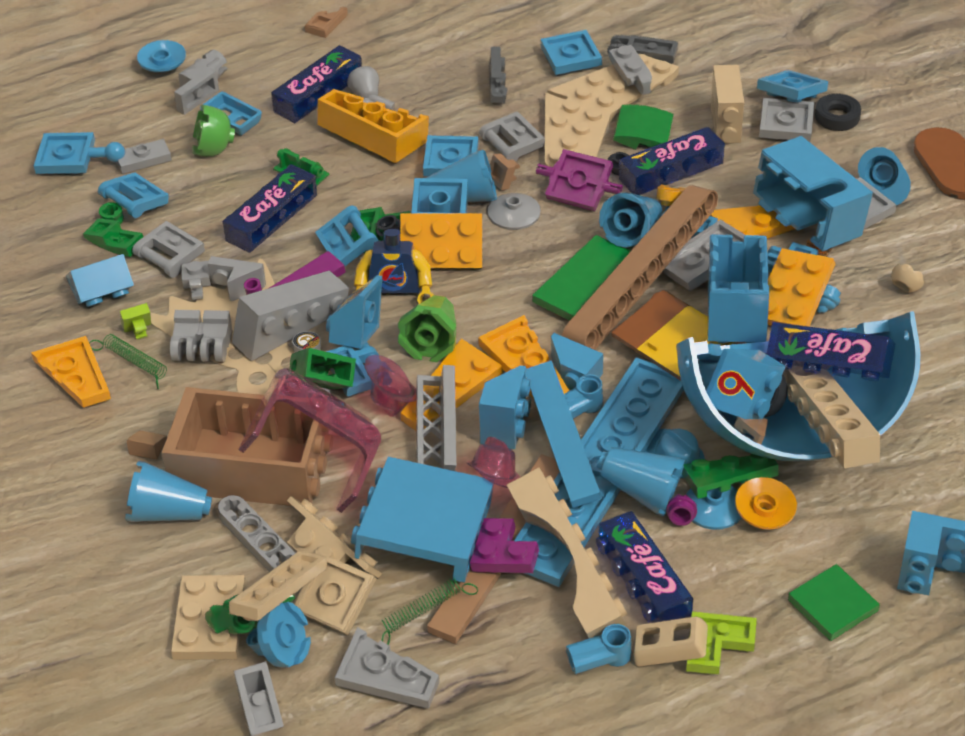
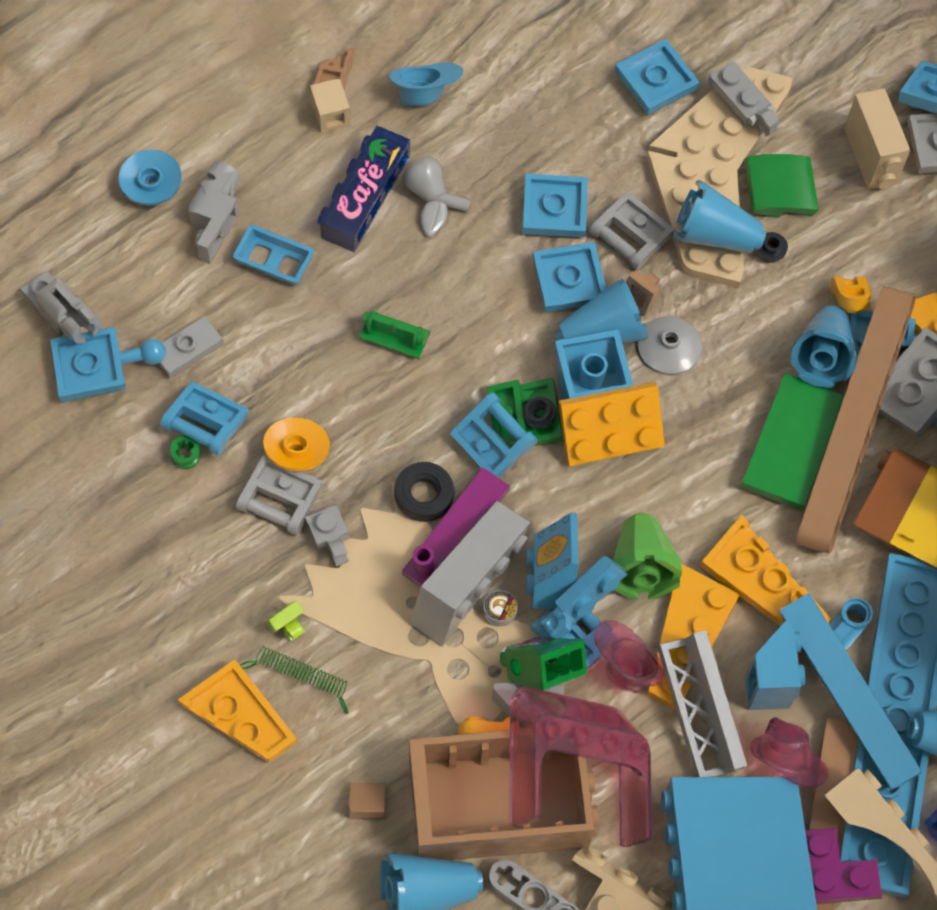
camera: 20 degrees left, 20 degrees up
(60, 115) = (60, 307): none -> light grey plate
(100, 279) = (215, 564): dark azure slope -> none
(111, 237) = (202, 489): green slope -> none
(194, 219) = (296, 434): none -> light orange dish
(211, 335) = (359, 624): light grey legs -> none
(212, 132) = (265, 298): bright green cylinder -> none
(234, 274) = (391, 523): light grey slope -> none
(270, 208) = (381, 406): clear blue brick -> none
(279, 252) = (424, 510): none -> black tyre
(313, 34) = (330, 105): none -> tan panel
(368, 329) = (583, 595): none -> dark azure hinge
(372, 125) = (460, 250): light orange wedge -> none
(386, 34) = (424, 83): none -> dark azure piece
(399, 265) = (570, 480): torso -> none
(458, 113) = (555, 205): none -> dark azure plate
(497, 77) = (581, 137): dark grey hinge -> none
(574, 129) = (717, 222): none -> dark azure cone
(574, 360) = (822, 575): dark azure slope -> none
(579, 179) = (738, 291): magenta plate -> none
(656, 48) = (745, 52): dark grey hinge -> none
(671, 161) = (834, 237): clear blue brick -> none

